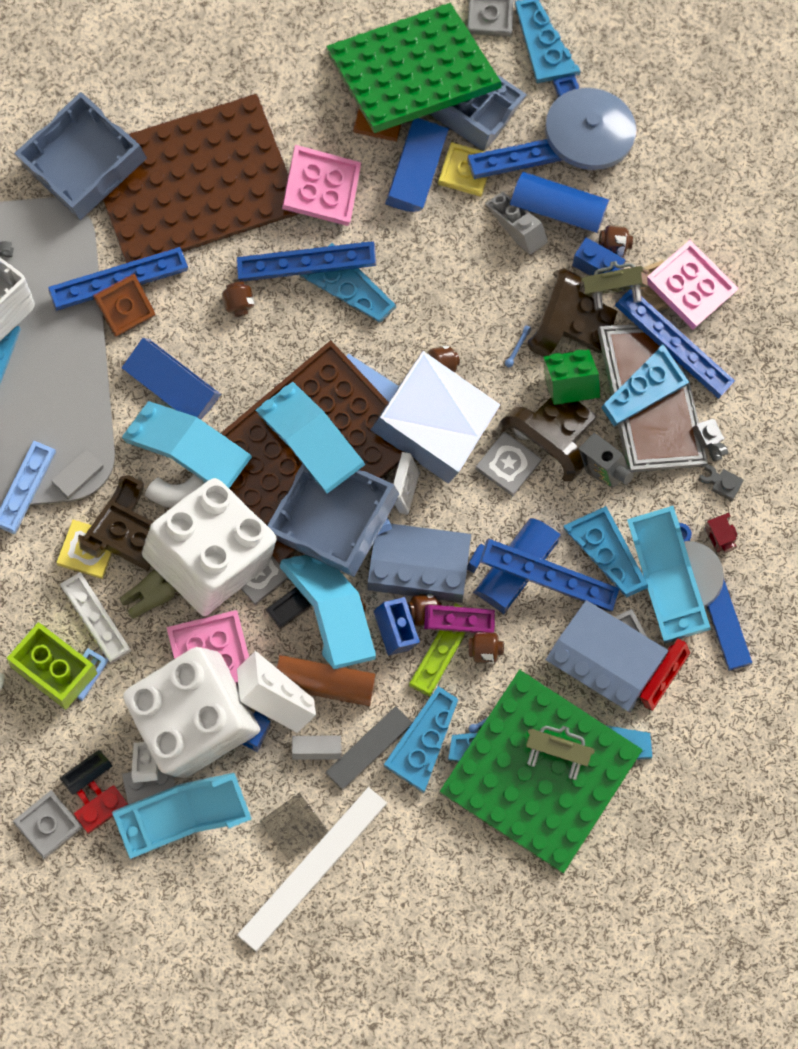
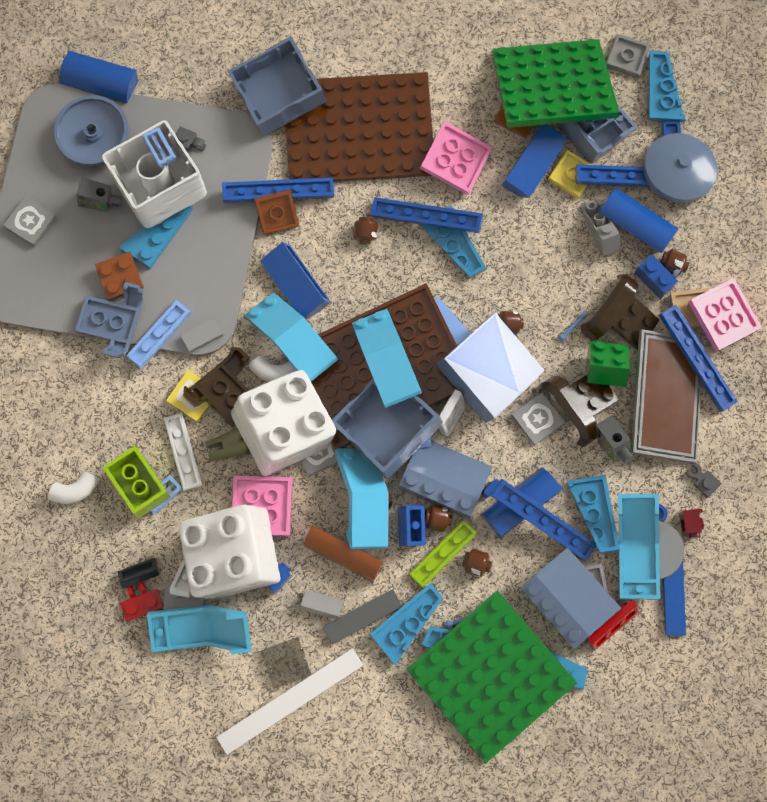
camera: 20 degrees right, 5 degrees up
(47, 824) = (98, 605): light grey tile -> none
(273, 693) = (298, 554): white wedge -> none
(288, 608) = (331, 486): black tile -> none
(459, 619) = (462, 534): magenta tile -> none
(559, 747) = (511, 664): olive piece -> none
(615, 281) = (667, 297): olive piece -> none
(647, 386) = (665, 388): wing -> none
(710, 436) = (704, 441): plate -> none

